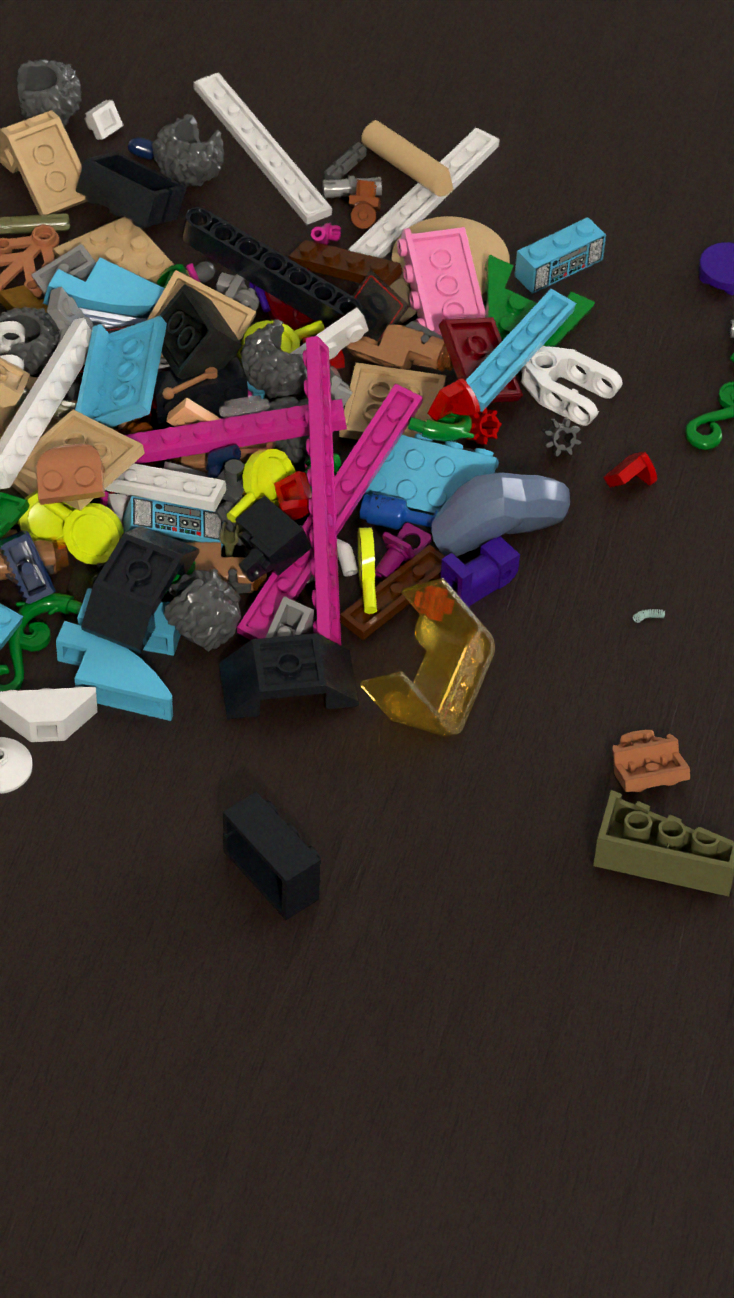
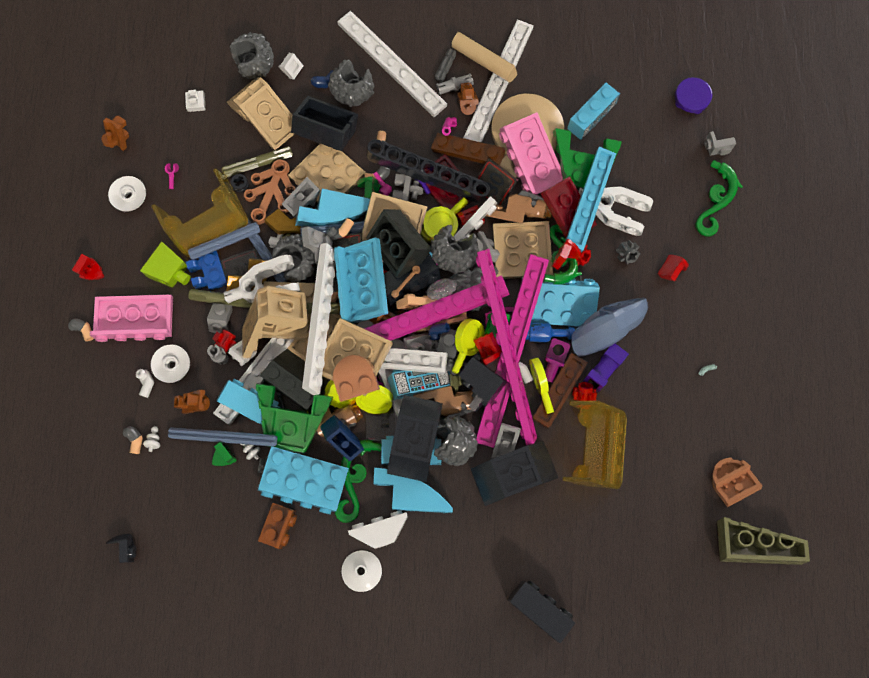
camera: 10 degrees left, 25 degrees up
(114, 318) = (340, 232): none -> arm

